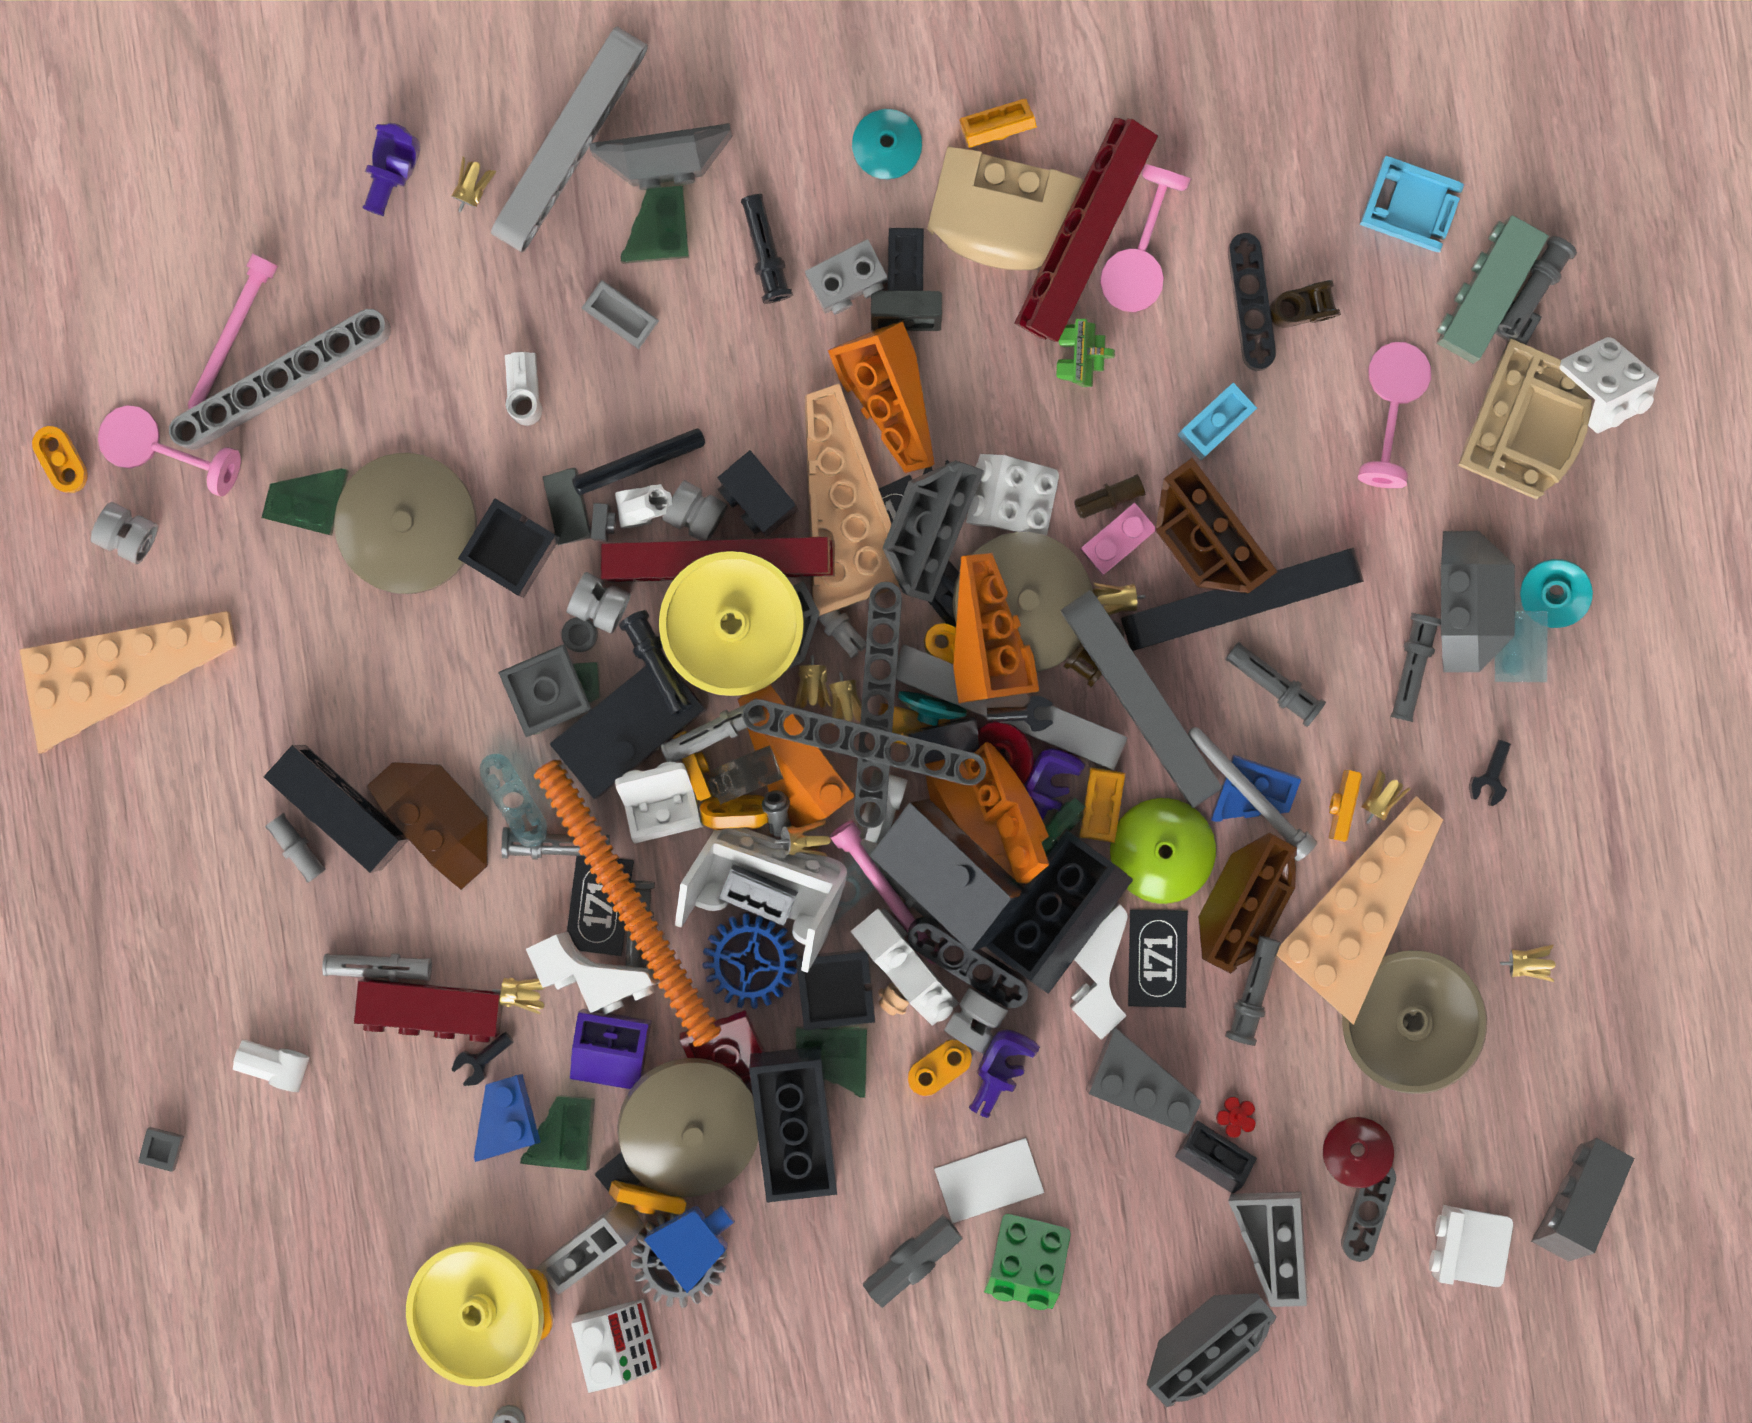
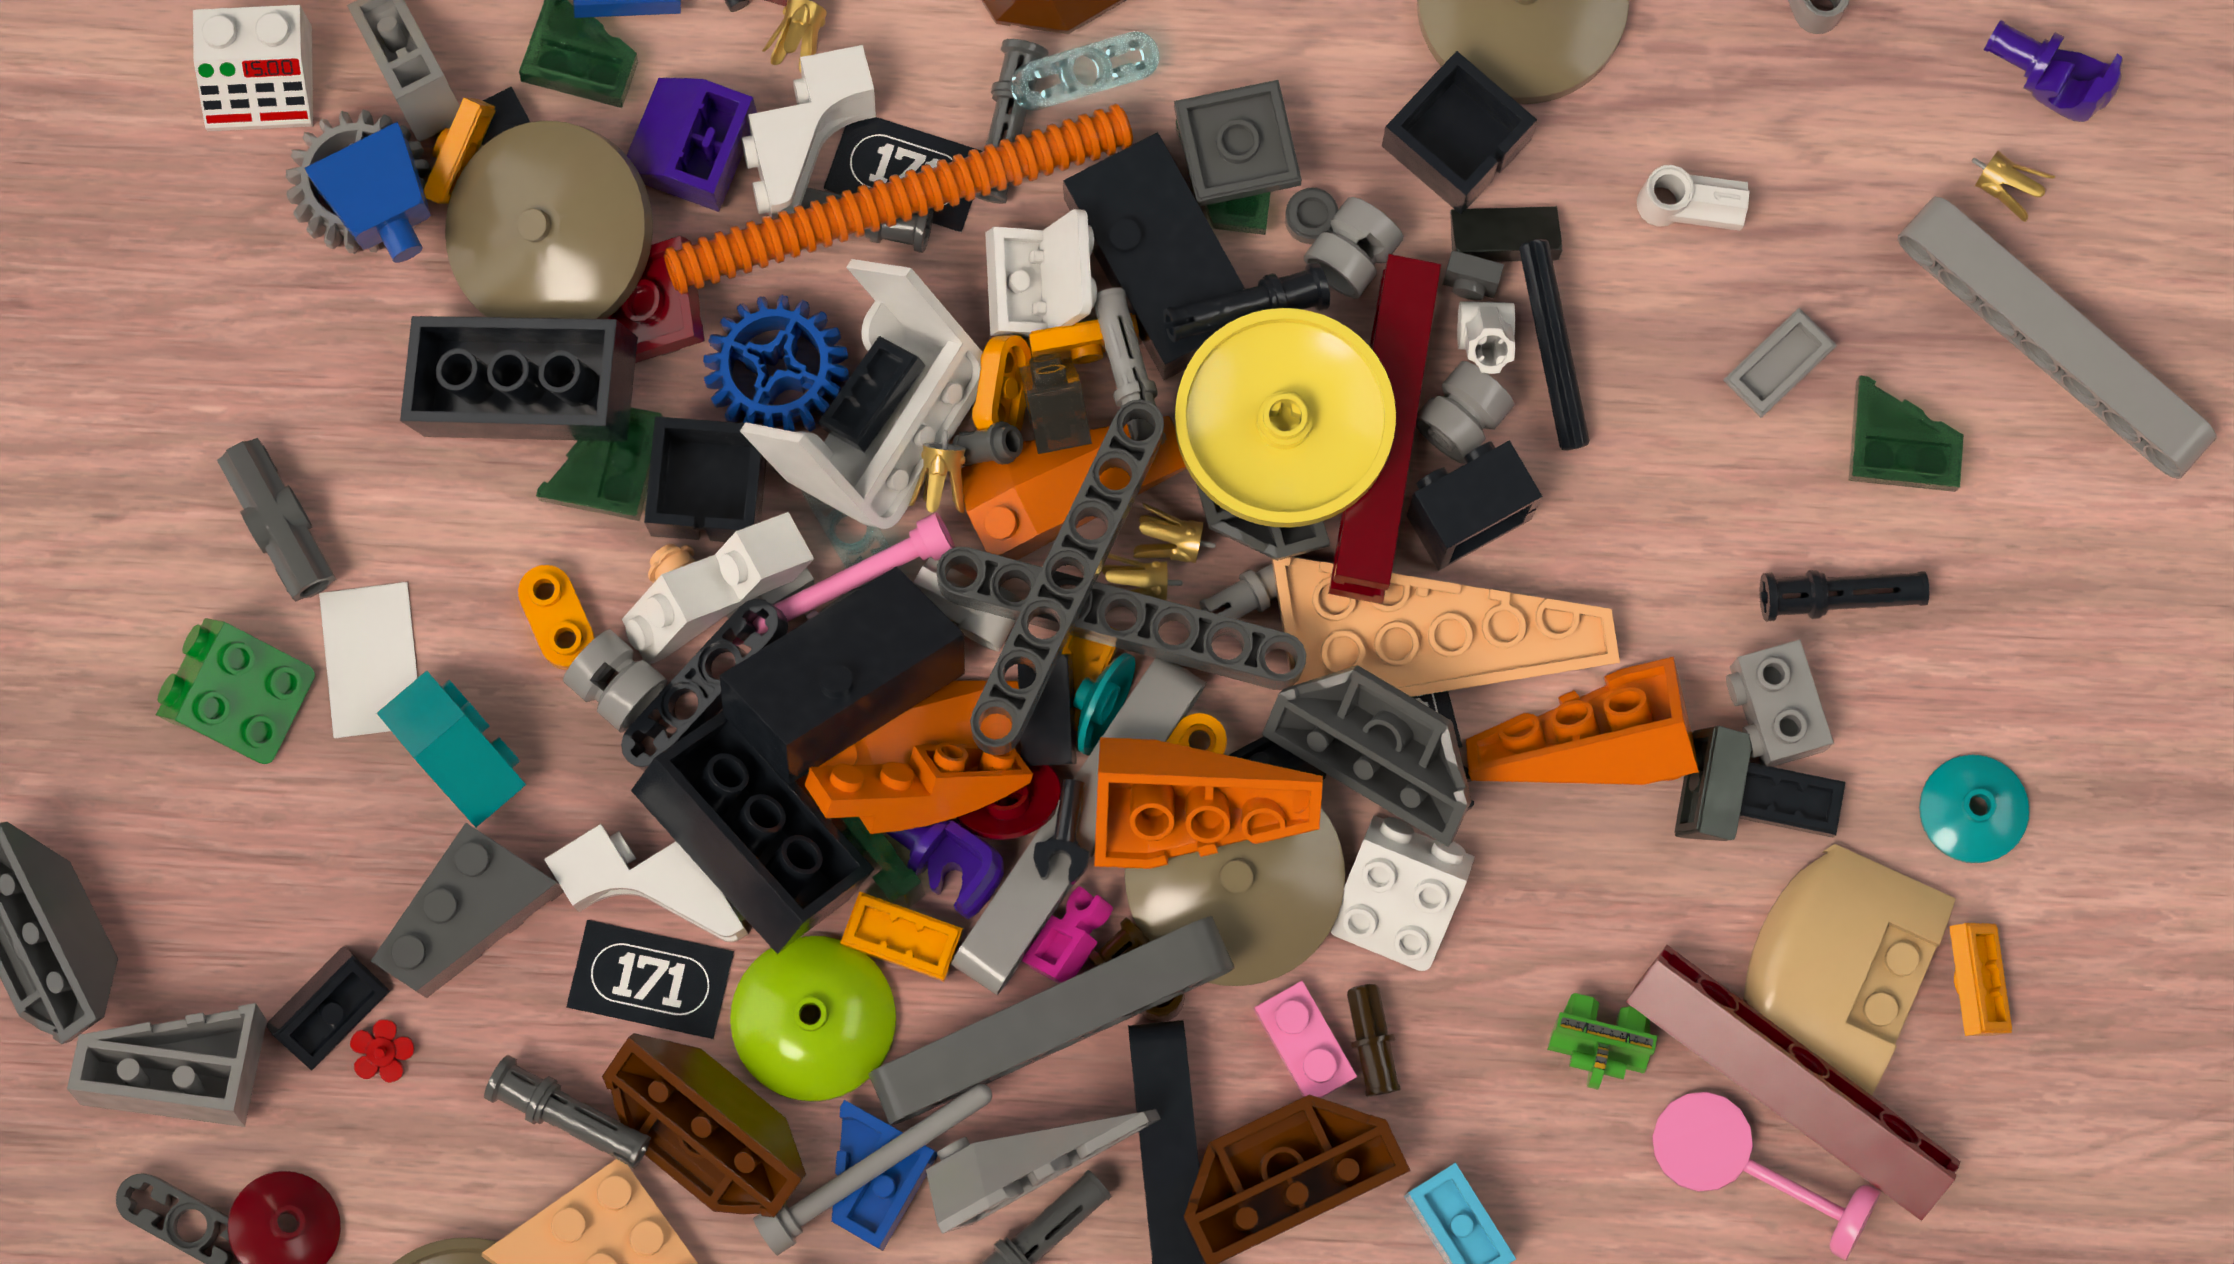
camera: 100 degrees right, 10 degrees down
(663, 156) = (2009, 472): dark grey wedge -> none
(997, 1072) = (534, 698): dark purple piece -> none
(1040, 1114) = (448, 743): none -> teal brick
(1086, 701) = (1067, 943): none -> dark pink plate
(1117, 598) = (1213, 1018): pearl gold piece -> none
(1241, 717) = (997, 1171): none -> light grey wedge

